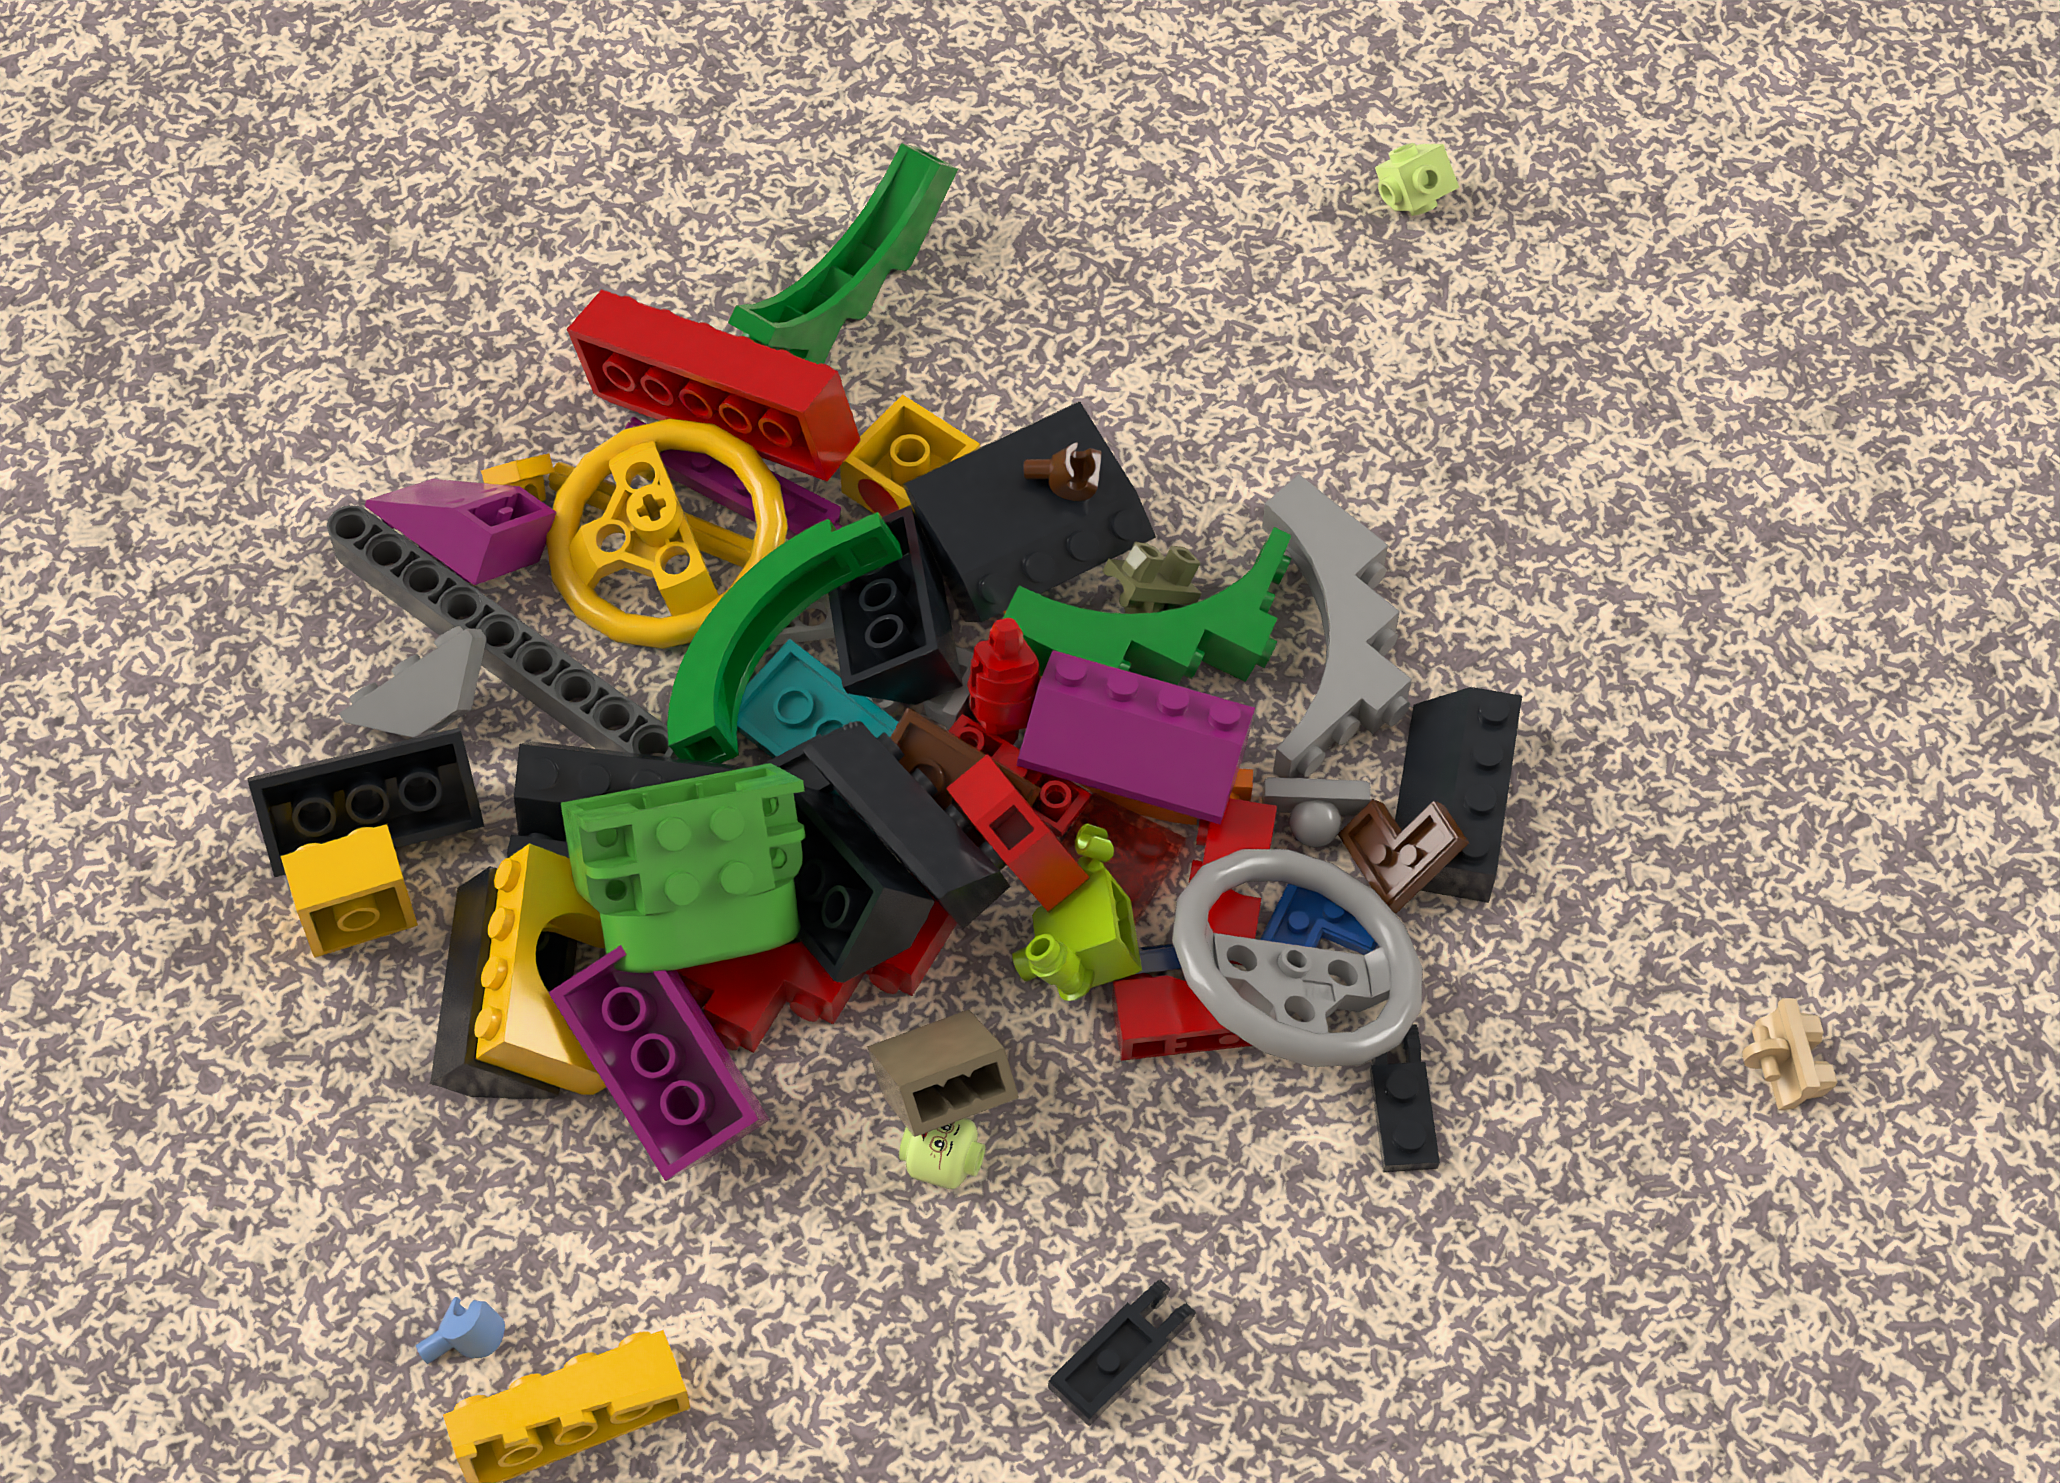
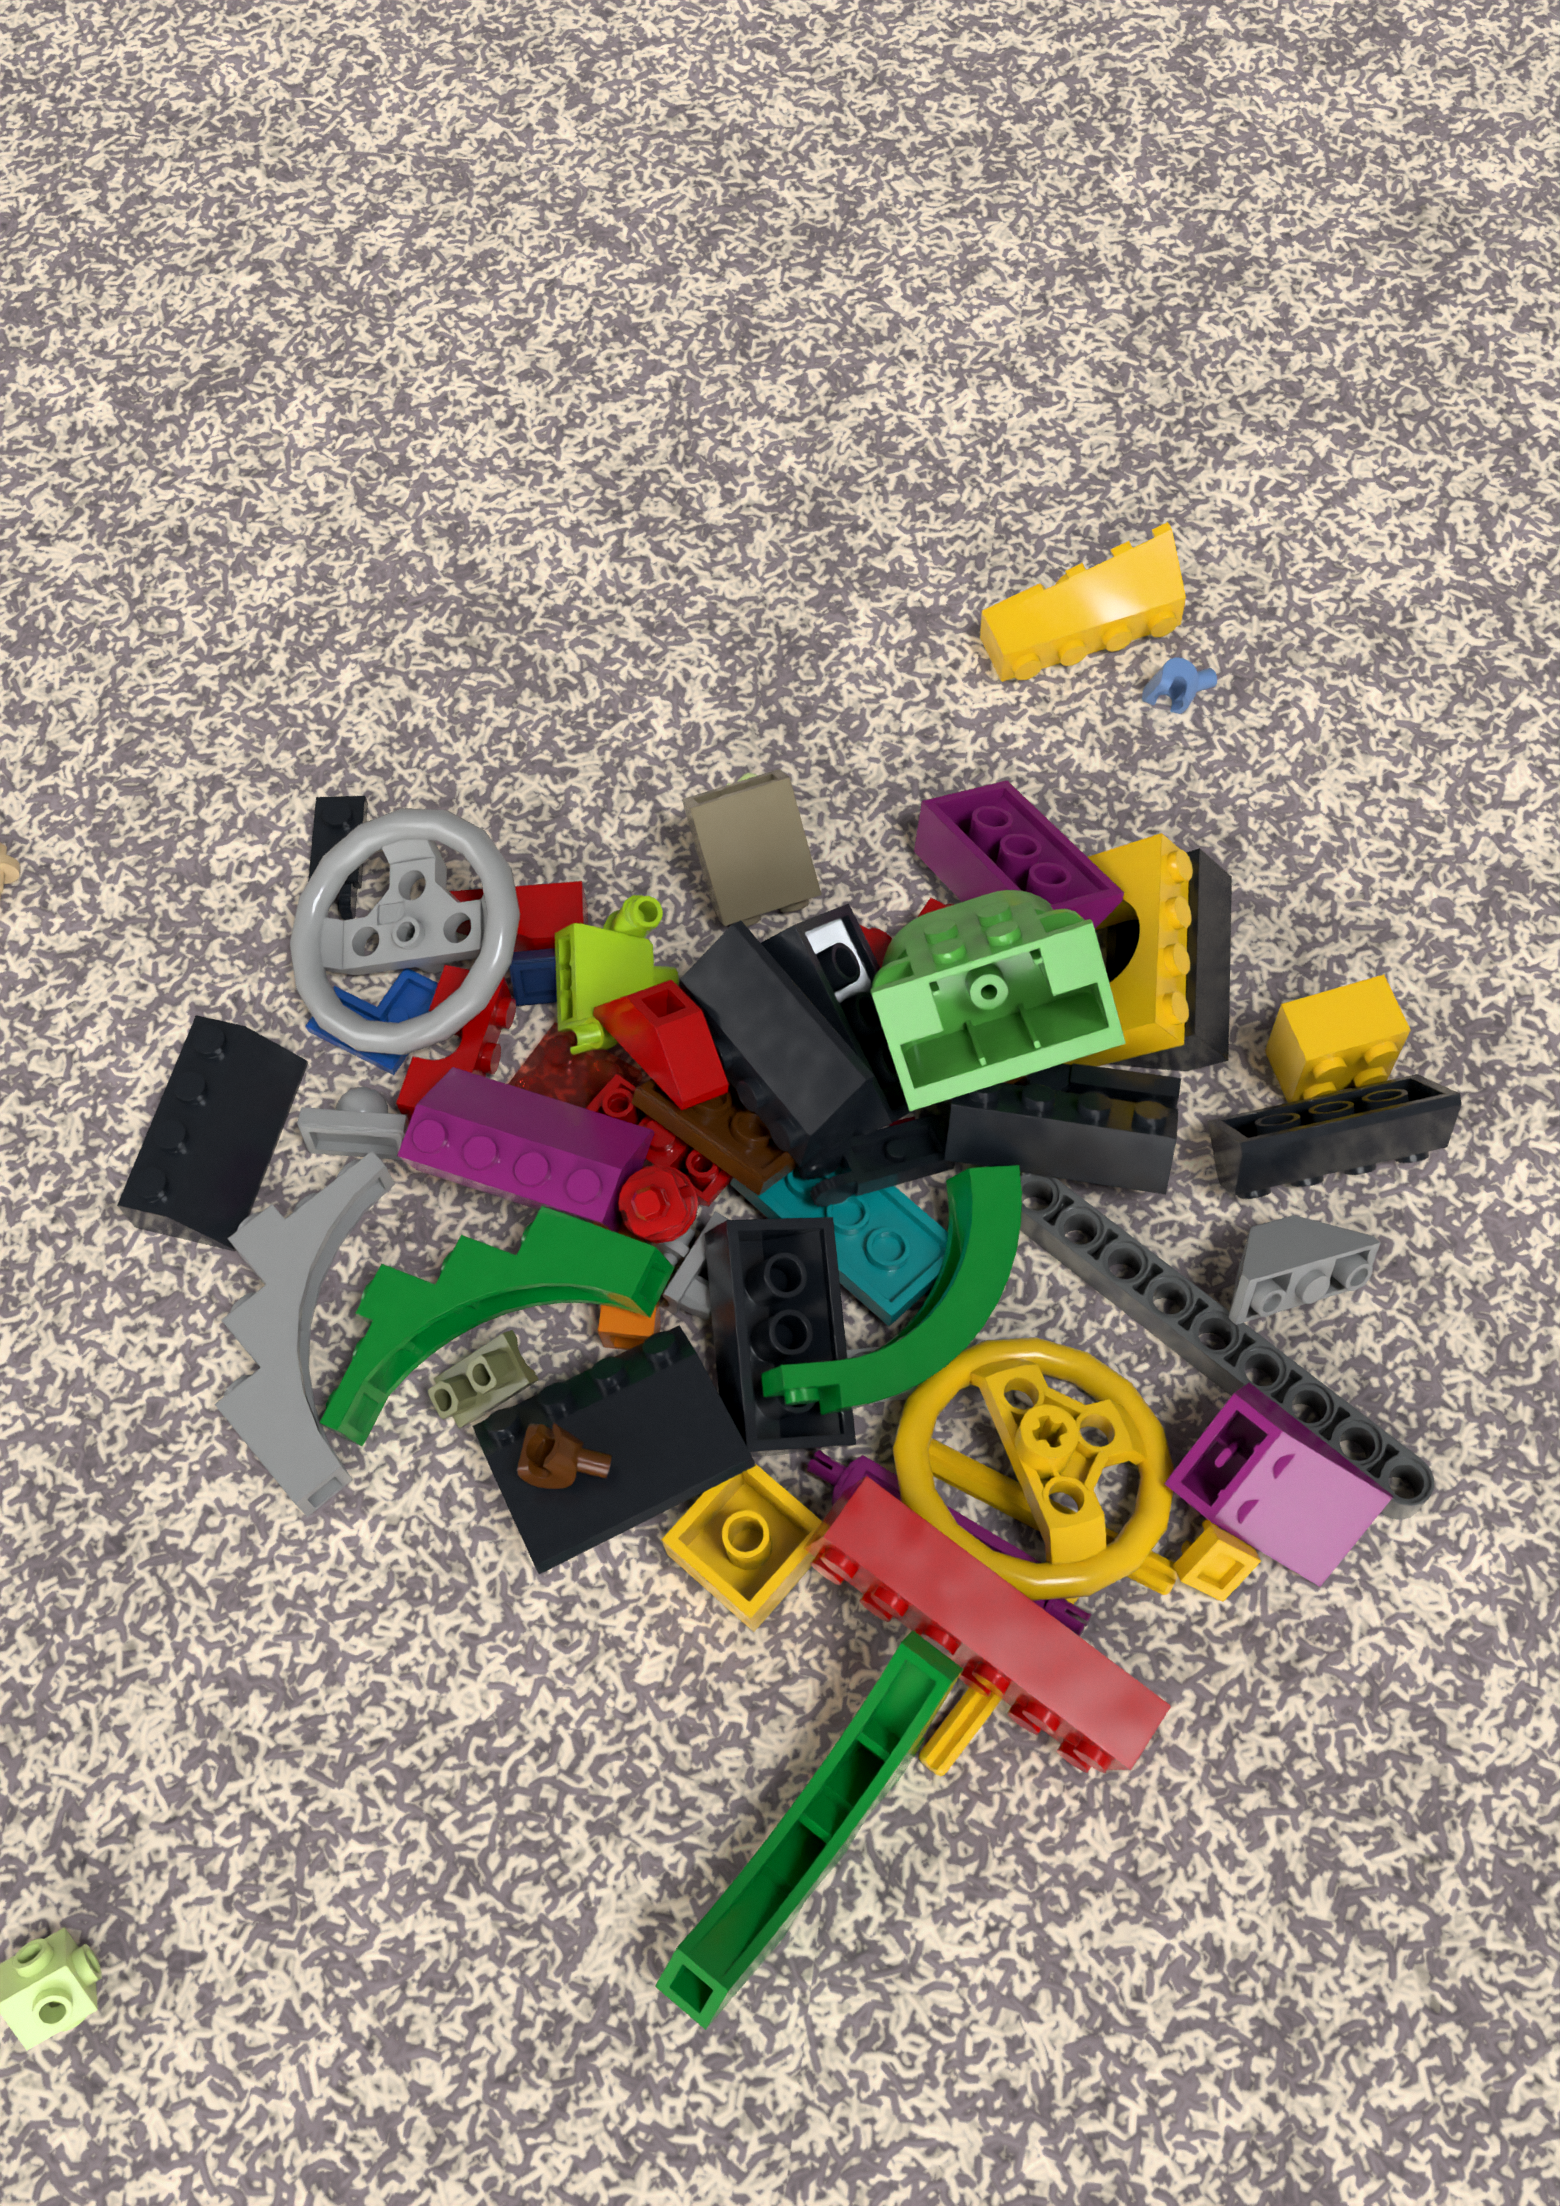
camera: 170 degrees left, 5 degrees up
(1117, 1355) = (616, 658): black hinge -> none
(1401, 861) = (281, 1045): reddish brown tile -> none

